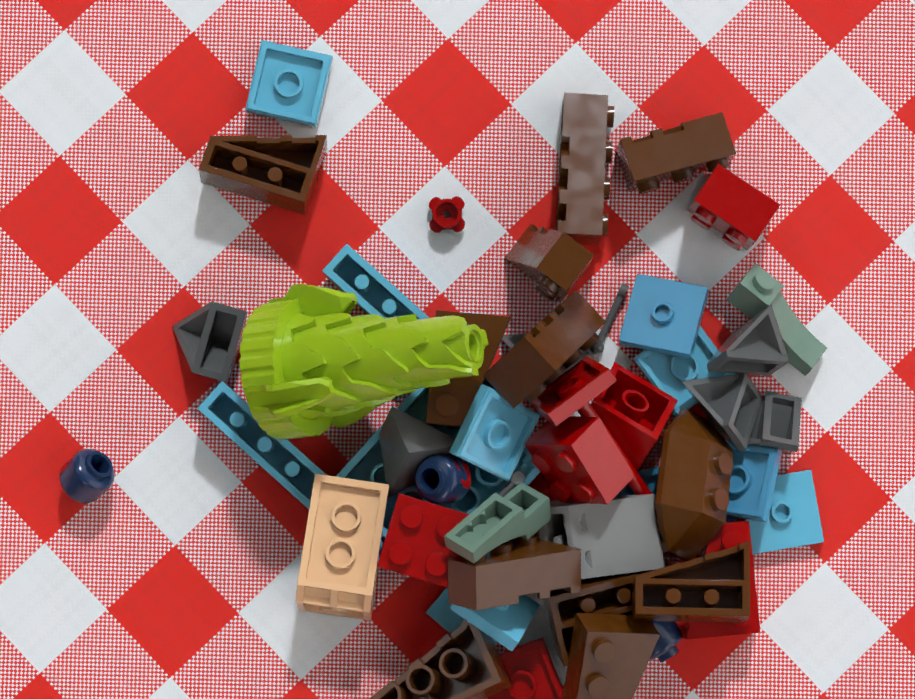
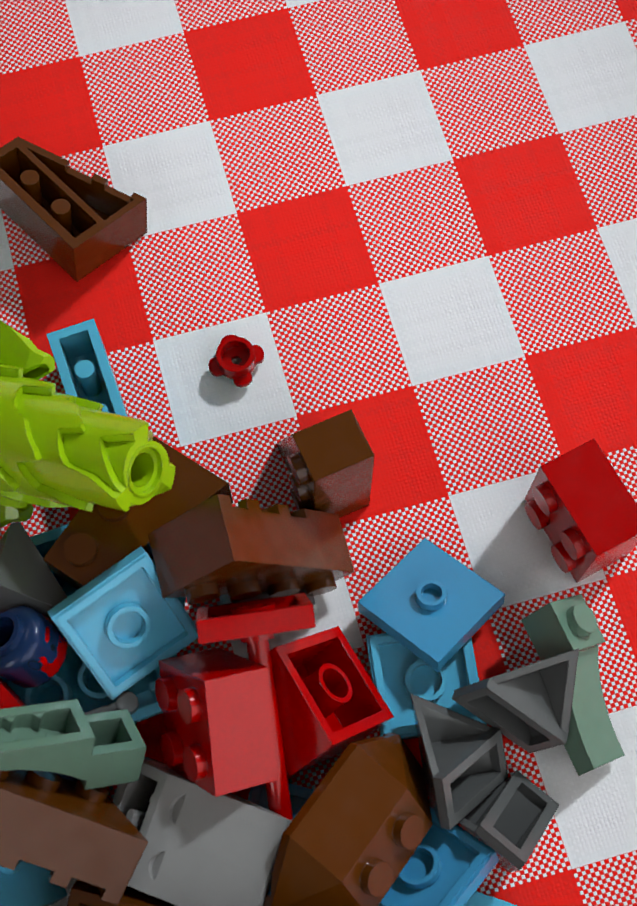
camera: 30 degrees right, 15 degrees down
(289, 83) = (144, 143): medium azure plate -> none
(582, 167) = (423, 380): reddish brown wedge -> none
(598, 346) = (330, 601): dark grey hinge -> none
(675, 153) = (540, 416): reddish brown wedge -> none

